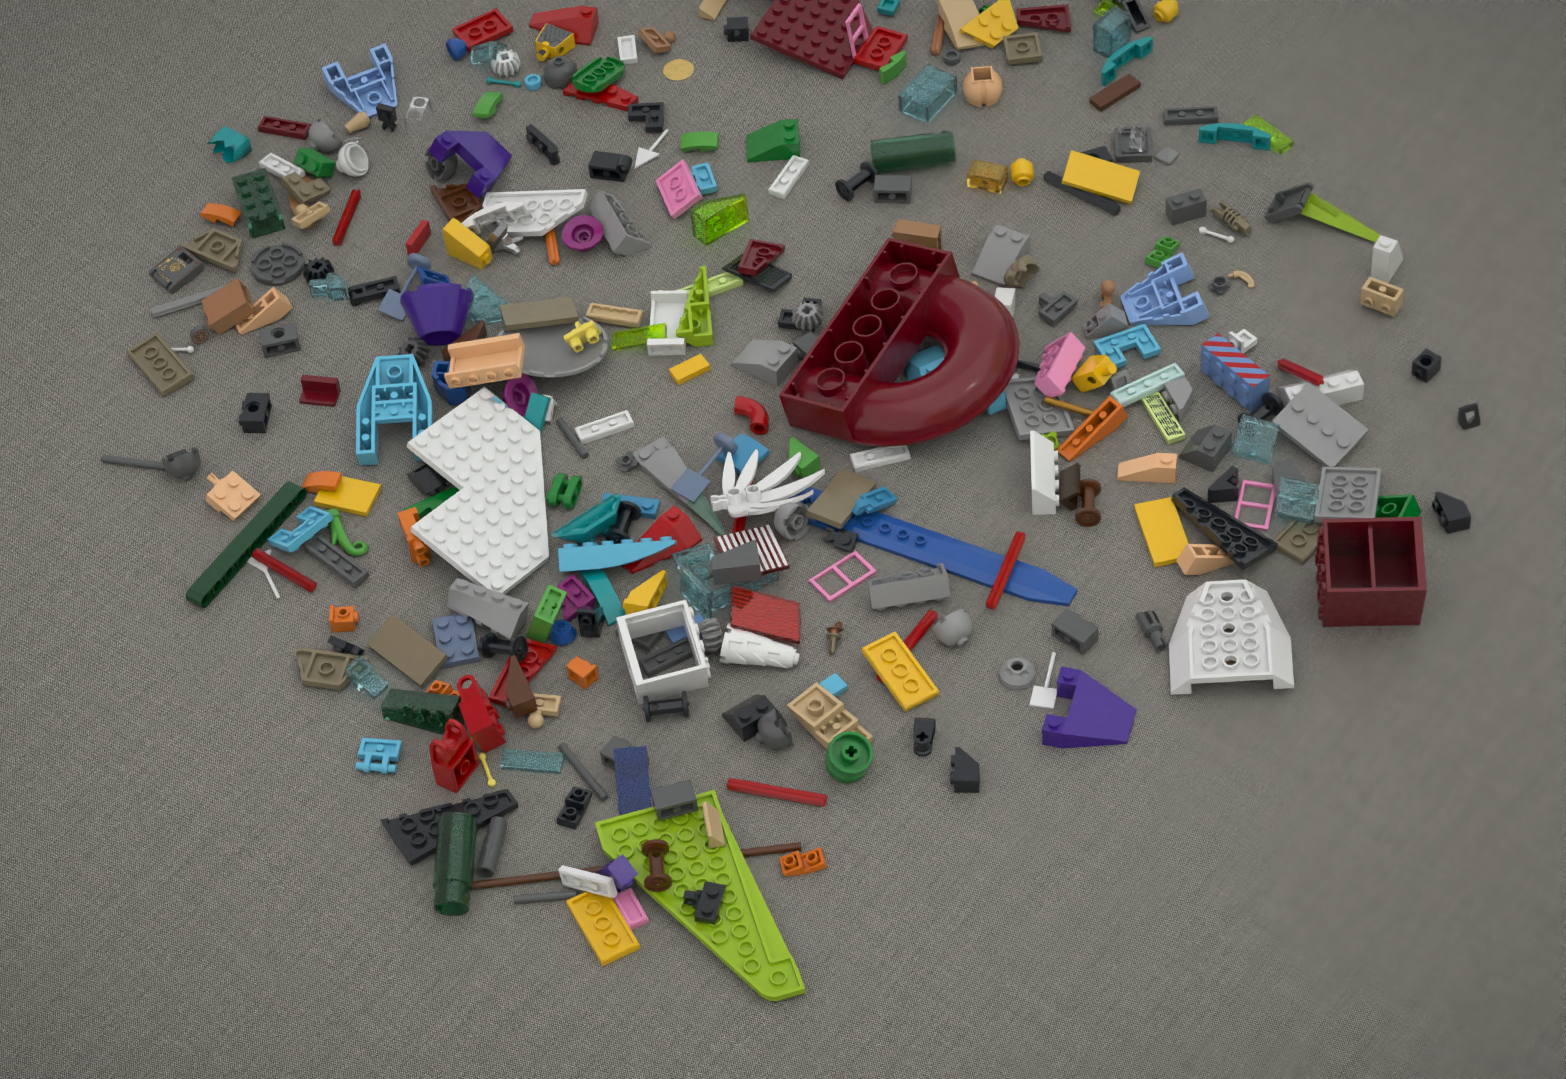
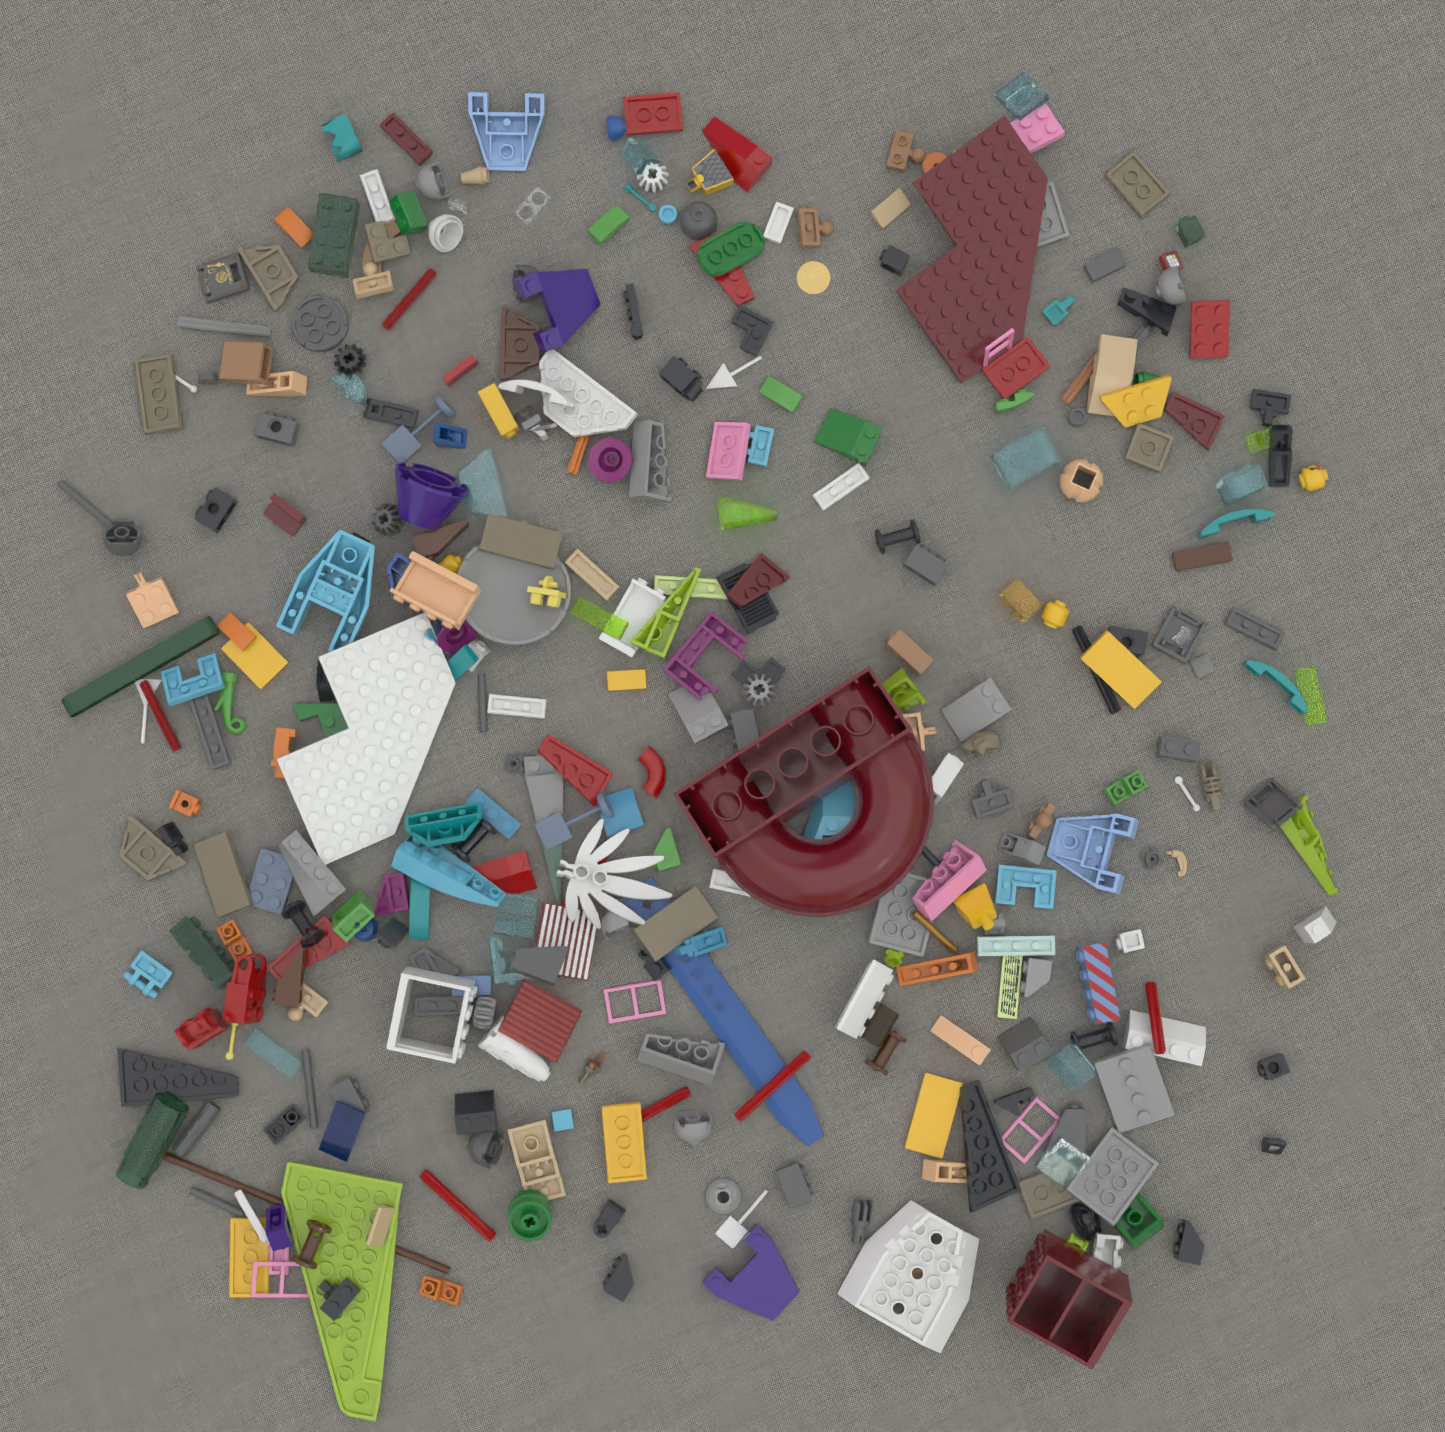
camera: 20 degrees right, 35 degrees up
(364, 678) = (174, 887): clear light blue brick -> none
(387, 115) = (502, 191): black plate -> none
(564, 491) = (432, 768): green brick -> none
(582, 672) = (358, 983): orange brick -> none
(639, 909) = (282, 1264): none -> bright pink window
(647, 594) = (447, 940): yellow slope -> none
(666, 706) = (410, 1066): black hose -> none
(674, 800) = (360, 1183): dark grey brick -> none
(682, 436) = (580, 771): none -> red wing
(731, 337) = (680, 665): none -> magenta wedge
(913, 152) = (967, 533): clear green piece -> none

